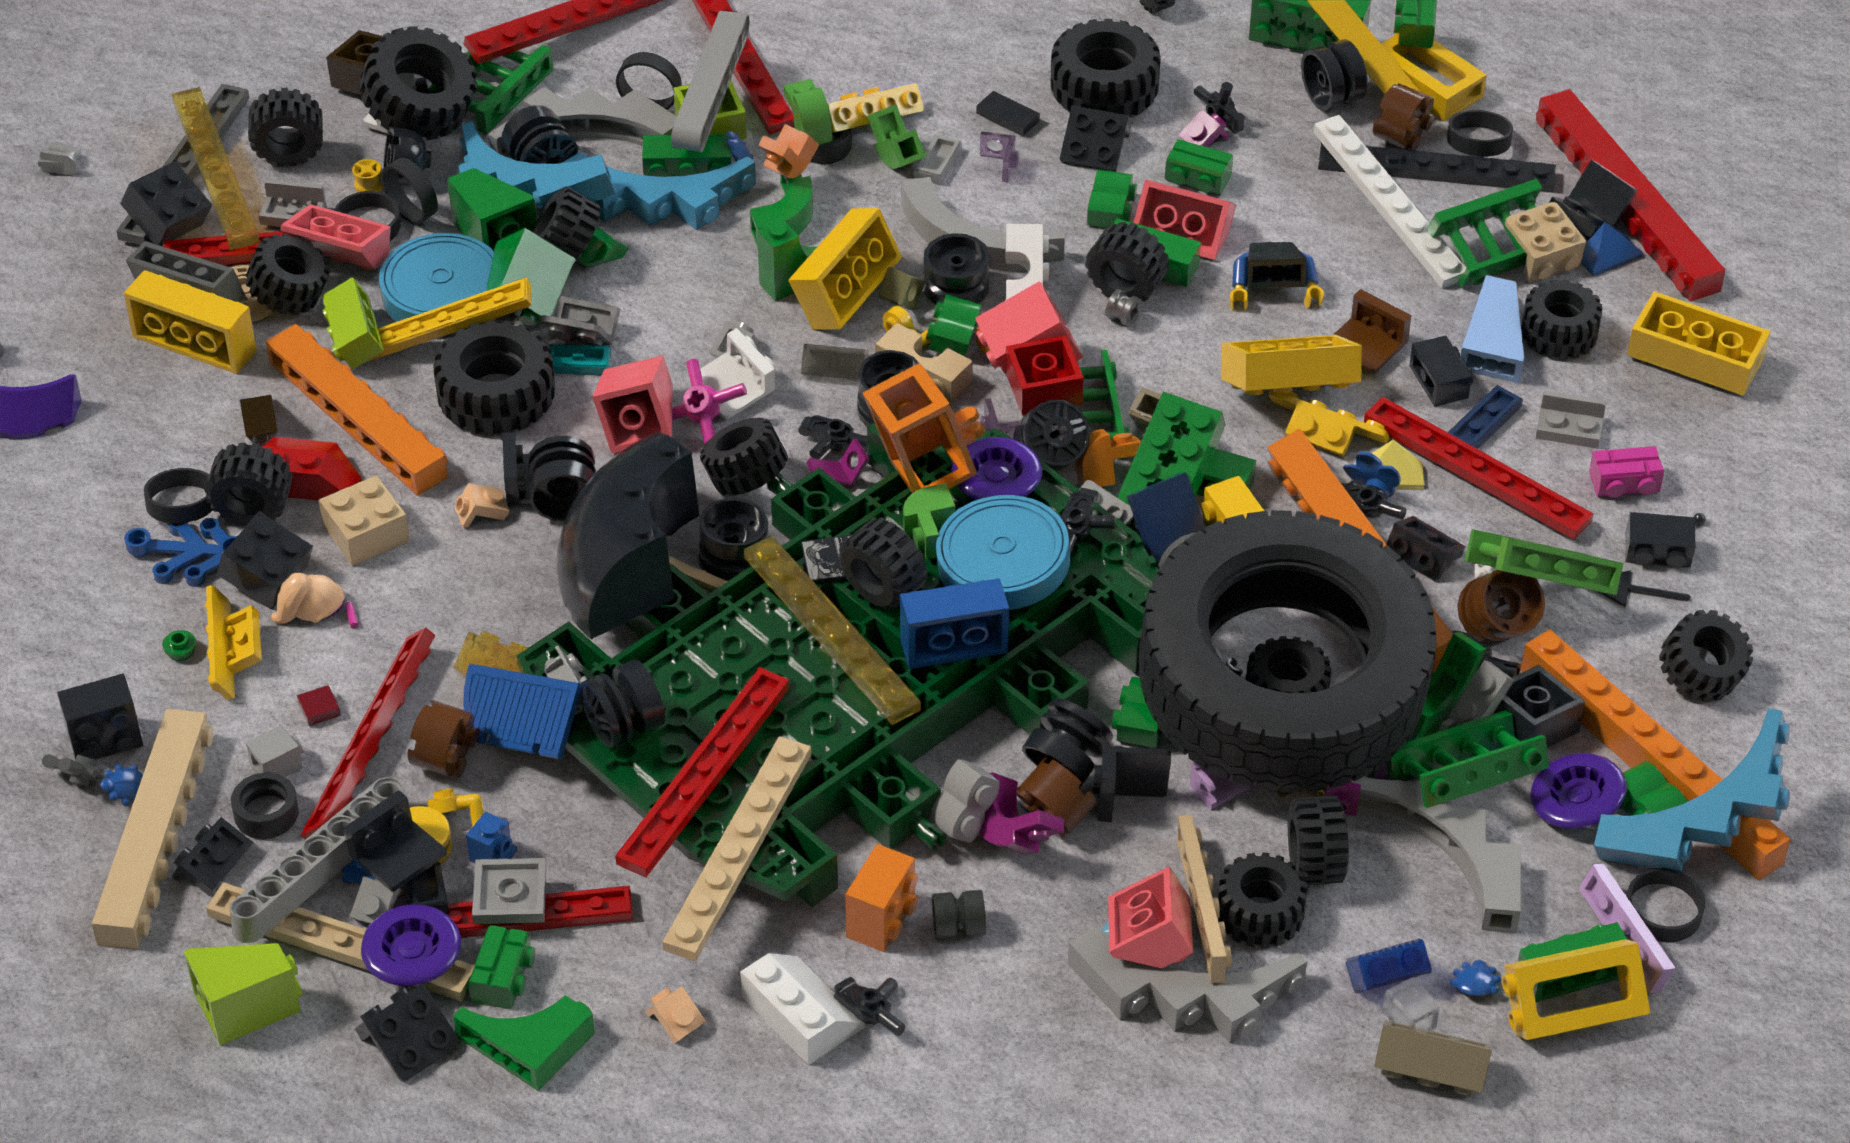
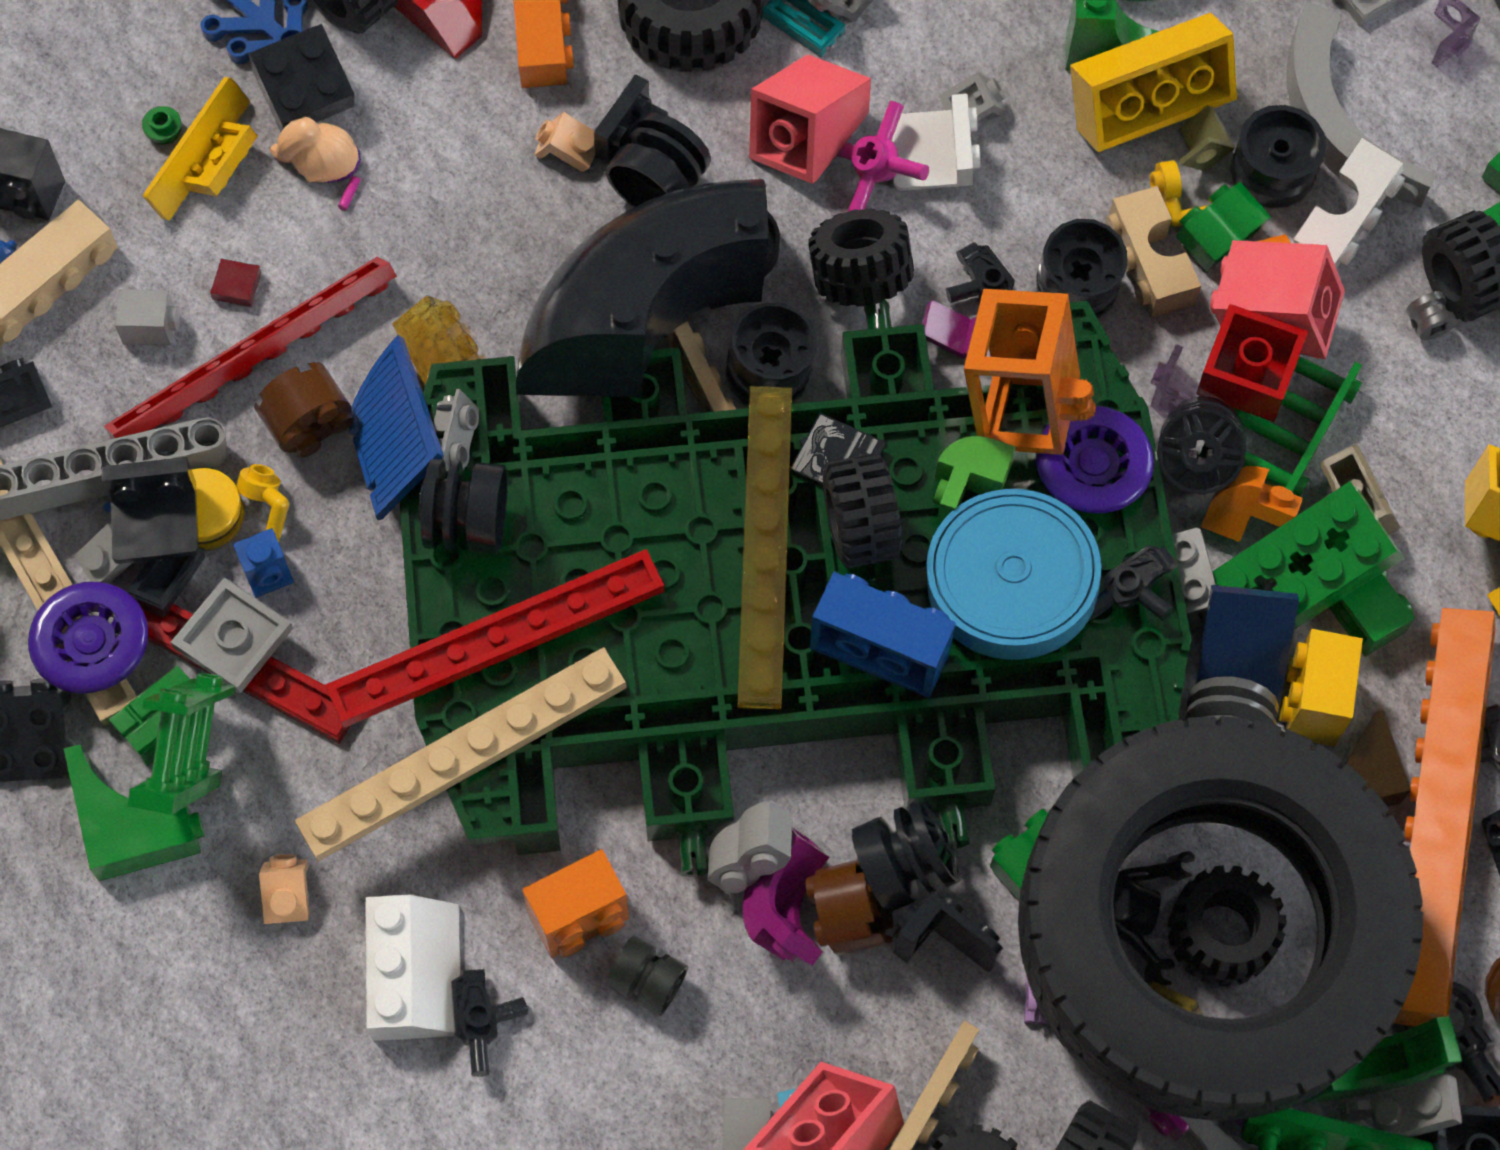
camera: 35 degrees right, 20 degrees up
(265, 825) = (87, 343): black tyre -> none
(364, 520) = (436, 90): tan brick -> none
(557, 961) = (182, 743): none -> green fence
(832, 361) = (1062, 185): clear smoke panel -> none

